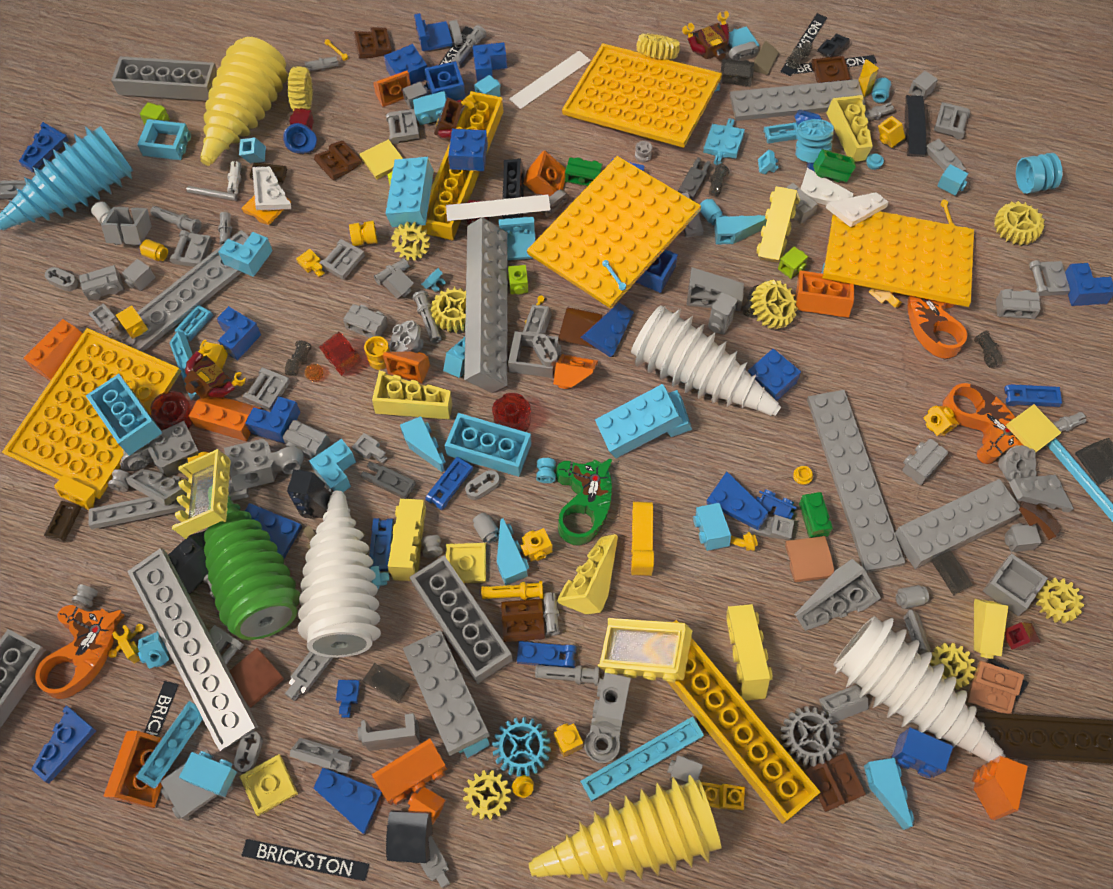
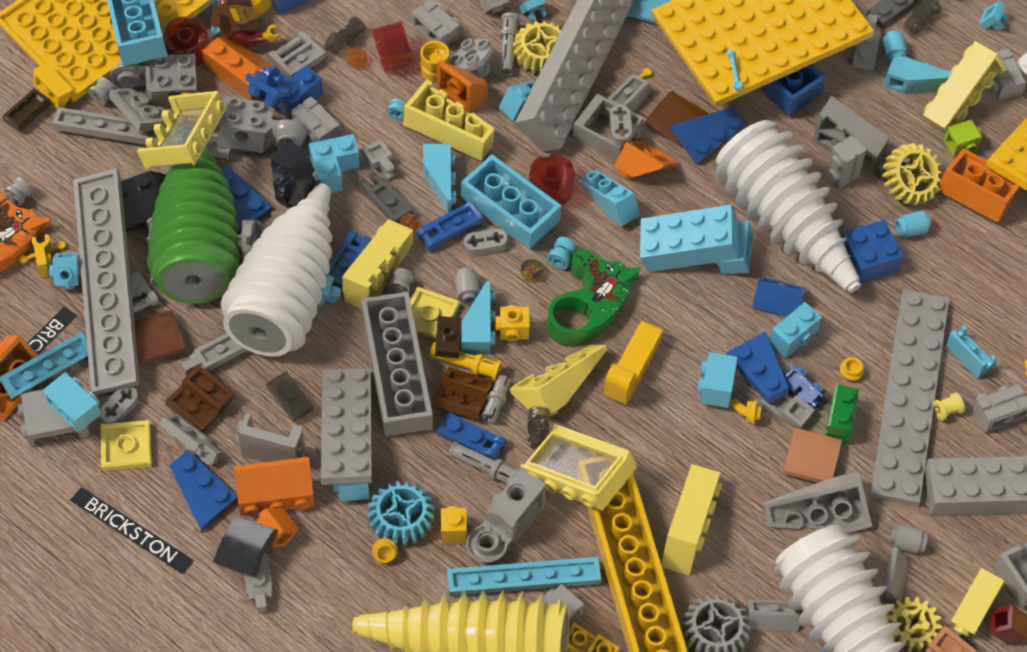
camera: 20 degrees right, 5 degrees down
(255, 423) = (268, 81): none -> blue hips
(295, 556) = (250, 233): none -> light grey plate
(313, 717) = (200, 398): none -> reddish brown slope
(347, 694) = (246, 392): blue plate -> none
(365, 402) = (396, 109): none -> medium azure bush
(417, 492) = (410, 221): none -> clear orange plate
(491, 578) = (448, 337): none -> dark brown plate
(496, 797) = (343, 543): light yellow gear -> none
(518, 279) = (630, 41): lime brick -> none
(528, 493) = (532, 270): none -> clear smoke tile
(561, 409) = (611, 197): none -> medium azure slope
(598, 621) = (537, 418): none -> clear smoke connector
(723, 439) = (777, 296): none -> blue panel
(749, 461) = (795, 330): none -> medium azure brick
(790, 342) = (912, 224): none -> medium azure brick
(880, 427) = (970, 353): none -> medium azure hinge
(887, 476) = (948, 406): none -> light yellow bush
(952, 573) = (968, 533): clear smoke plate -> none

